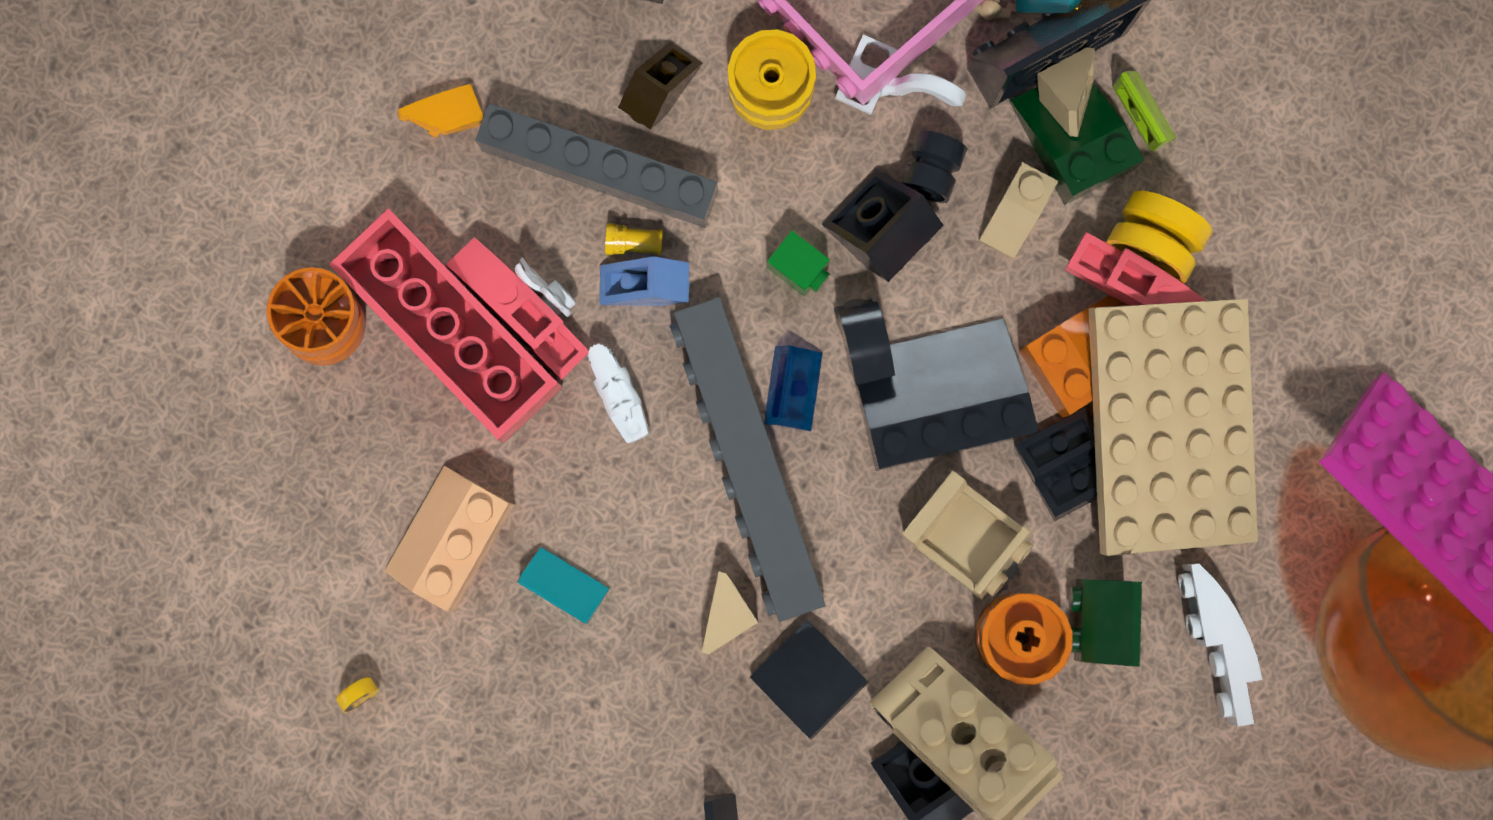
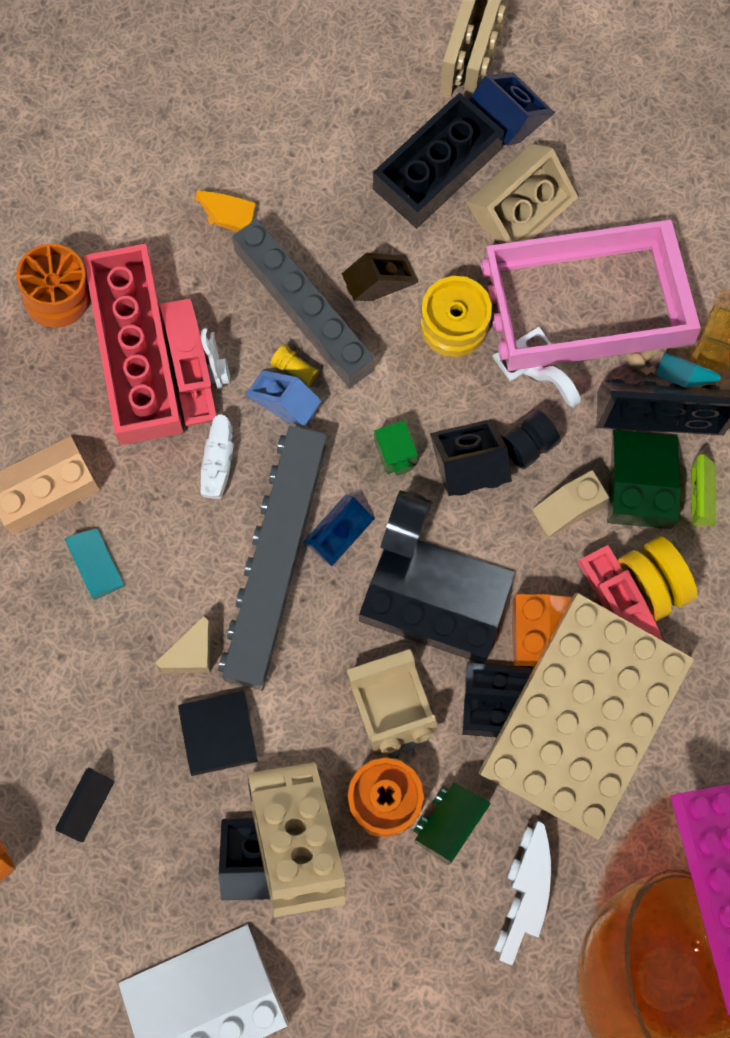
camera: 30 degrees right, 10 degrees down
(1067, 87) = (657, 441): tan slope -> none

